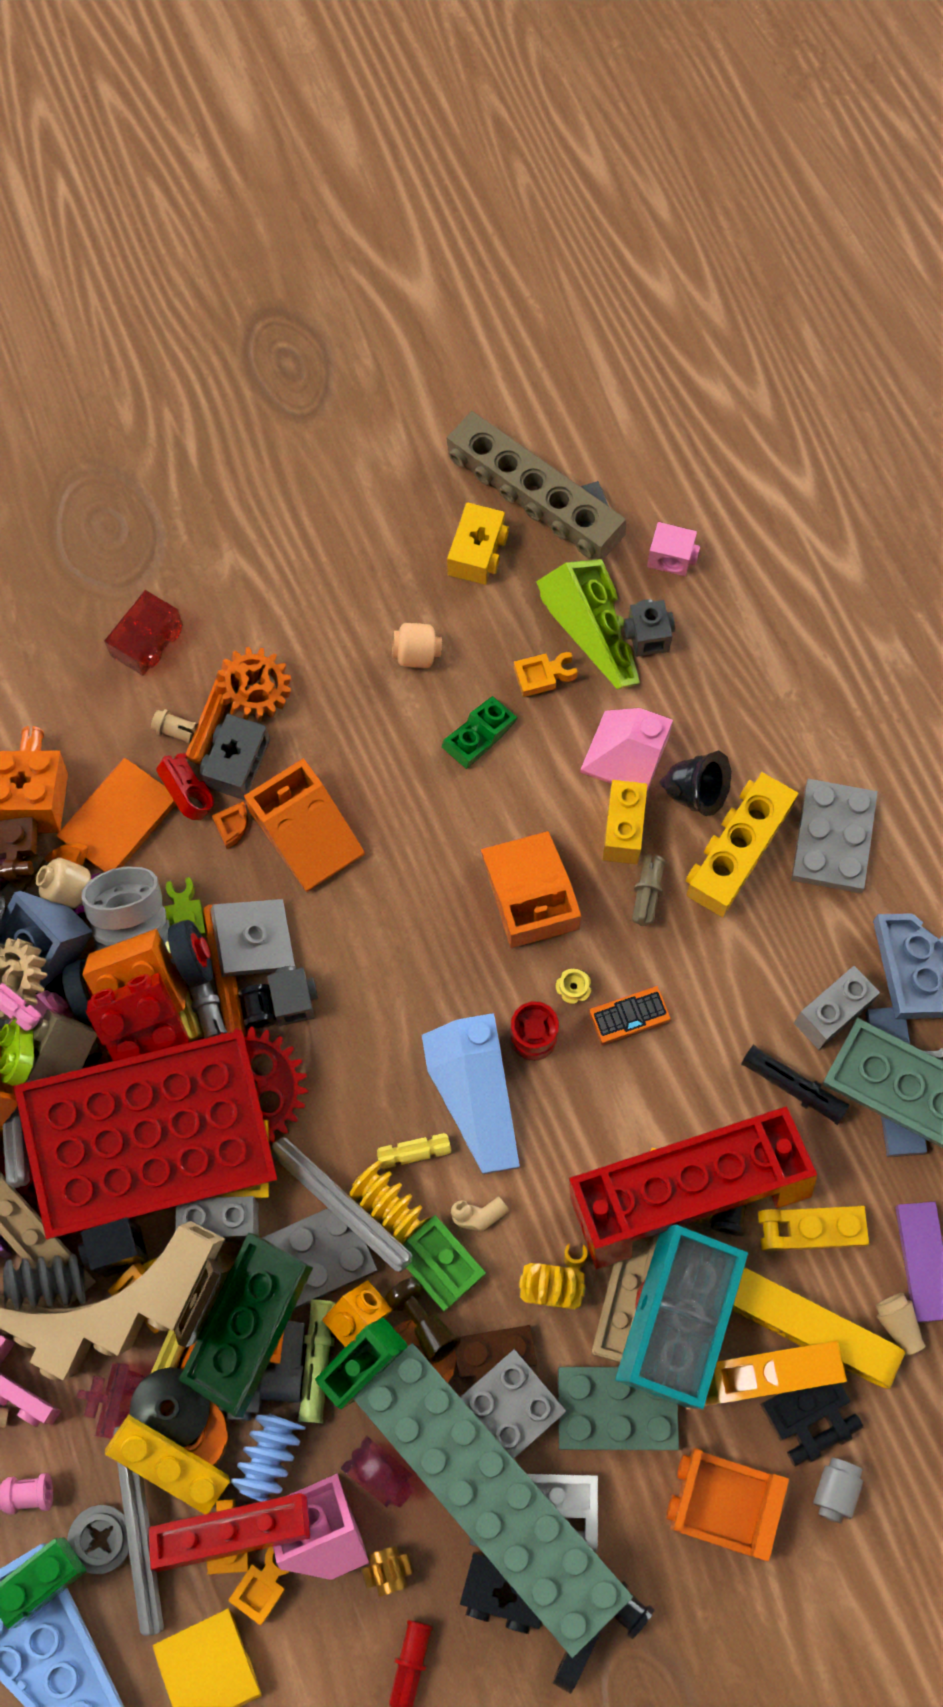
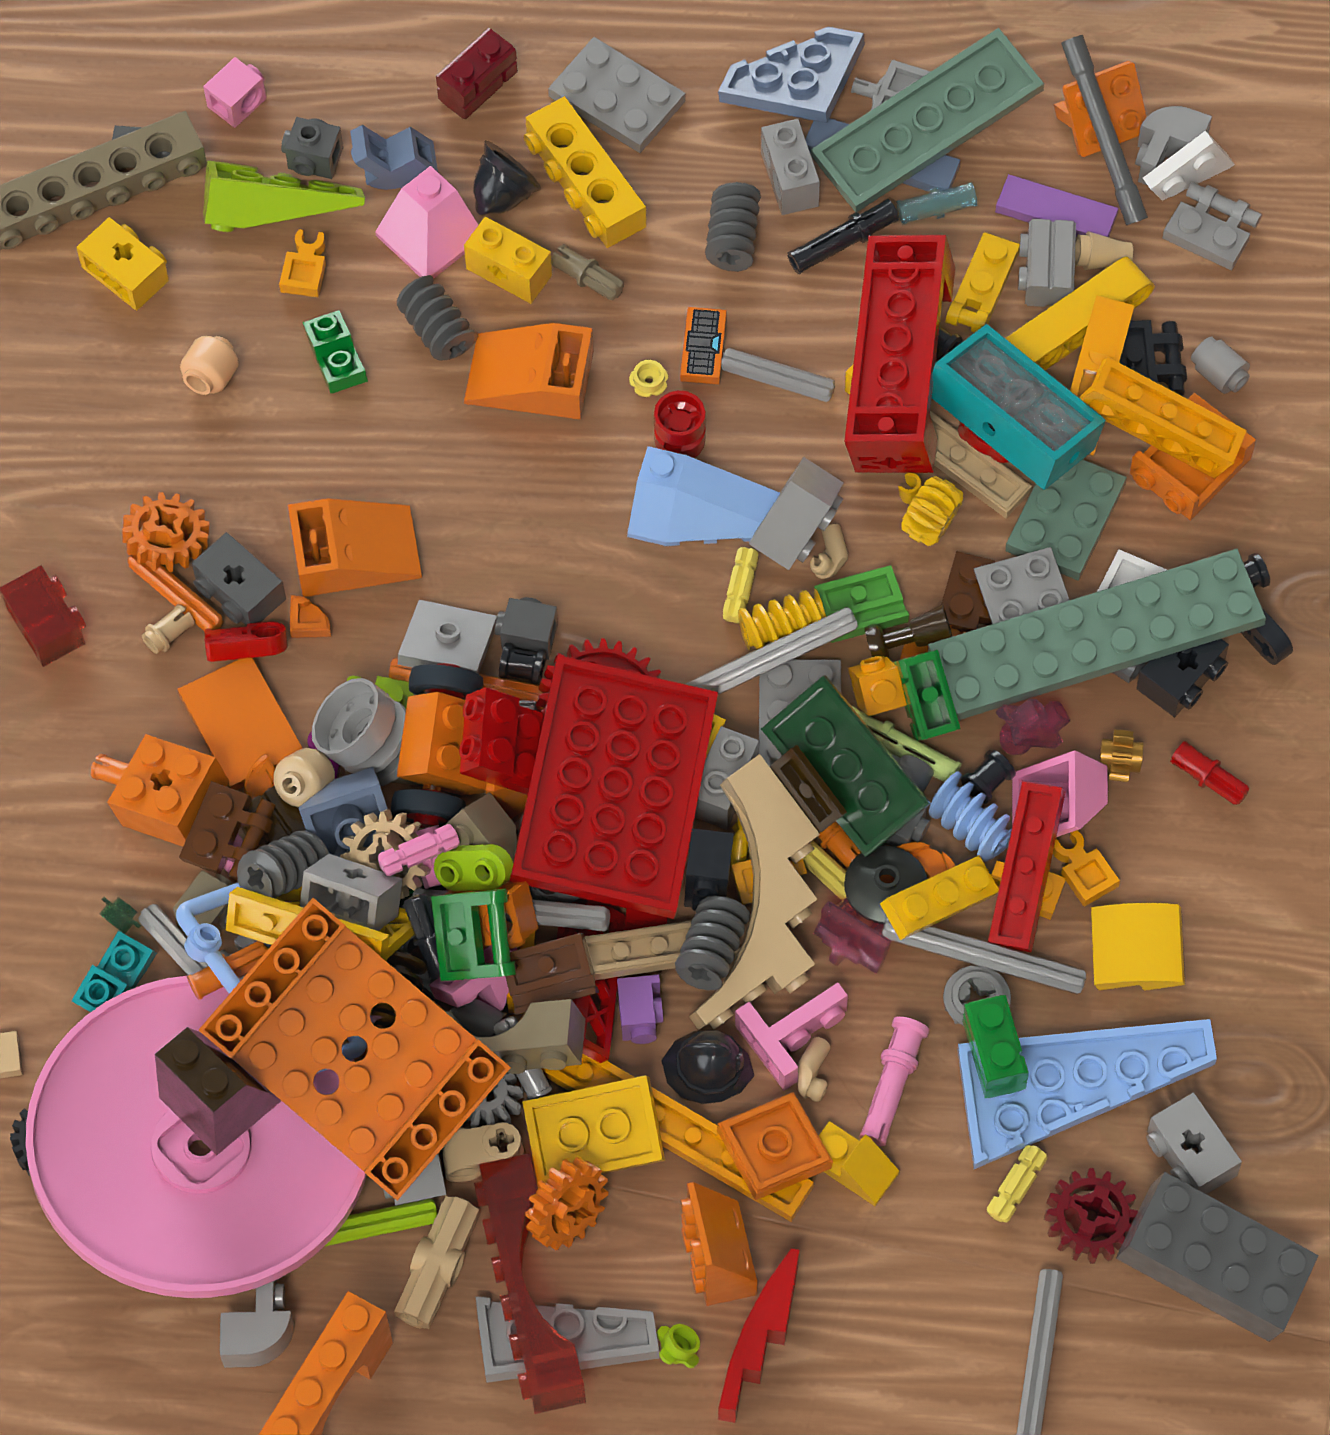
camera: 65 degrees left, 5 degrees down
(318, 1453) = (989, 774): none -> black bush
(494, 1170) = (802, 506): none -> light grey brick
(538, 791) = (435, 319): none -> dark grey piece
(631, 1091) = (777, 374): none -> light grey axle
(670, 690) = (393, 160): none -> sand blue brick
(739, 1464) = (1164, 418): none -> light orange fence
(752, 984) = (732, 226): none -> dark grey piece
(788, 717) = (476, 73): none -> dark red brick
(862, 1279) = (1049, 261): none -> light grey brick
(871, 1151) = (937, 203): none -> clear light blue pin

